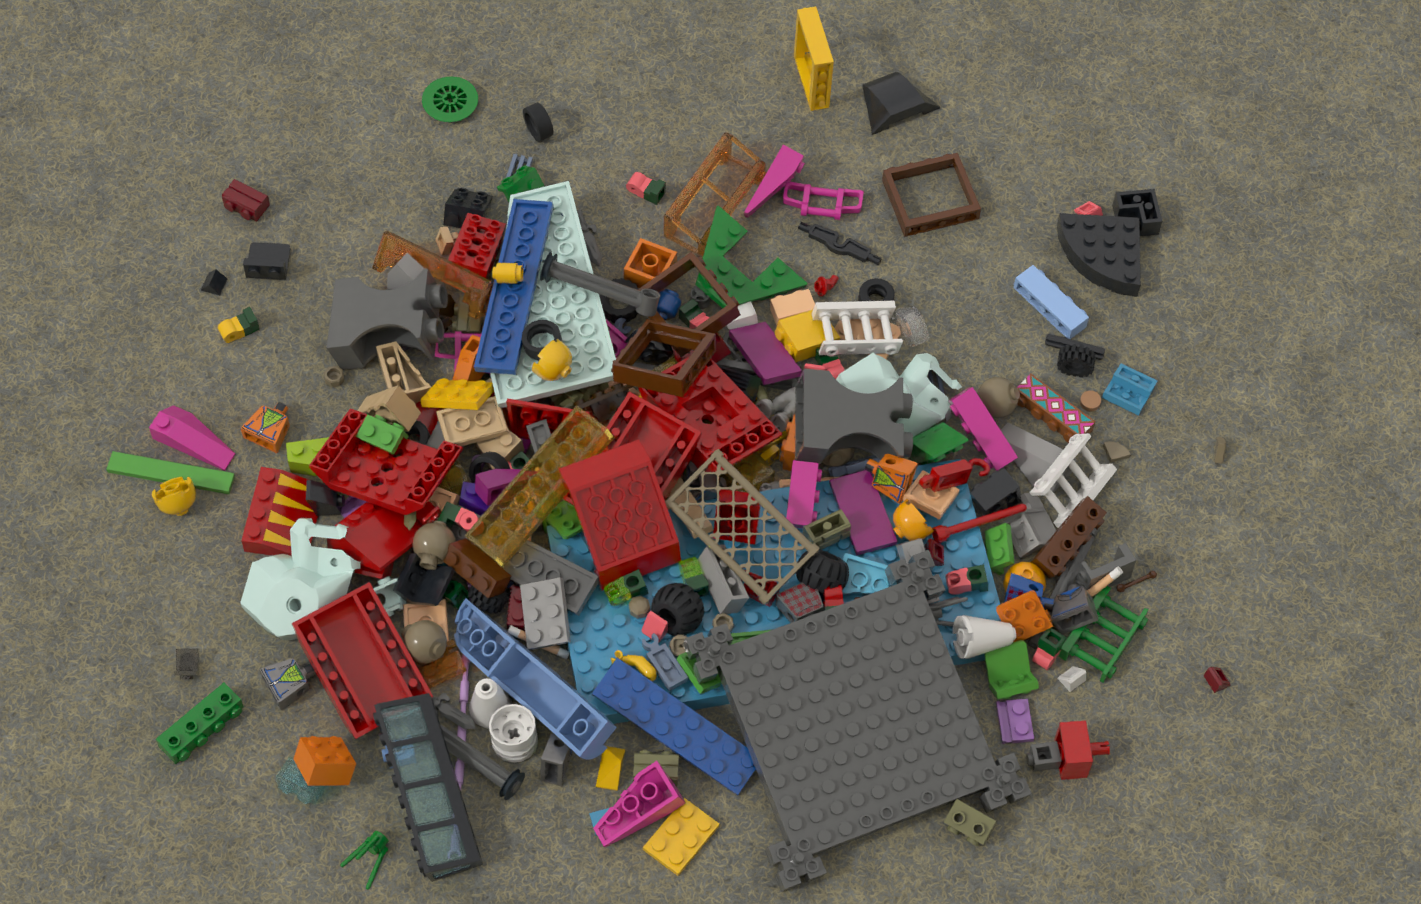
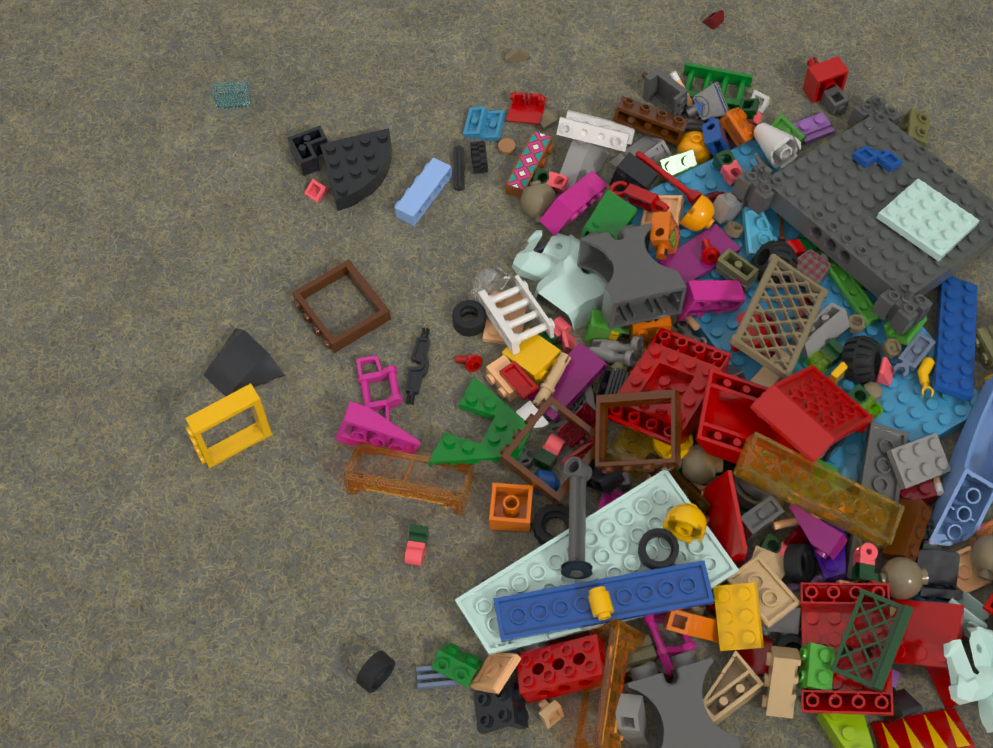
camera: 105 degrees left, 0 degrees up
(354, 474) = (890, 647): none -> dark green fence
(494, 203) = (495, 672): none -> light nougat plate
(667, 575) = (838, 373): none -> yellow tile
(763, 330) = (554, 375): none -> tan pin
(780, 308) = (519, 380): none -> red tile
(815, 735) = (928, 219): none -> light aqua plate
(855, 515) = (709, 254): none -> red plate
(883, 554) = (733, 229): none -> dark tan tile
(927, 719) = (866, 156): none -> blue tile
(1019, 418) = (555, 180): none -> coral leg
(1137, 434) = (526, 107): none -> red hinge
(1239, 160) = (231, 95): none -> clear light blue brick

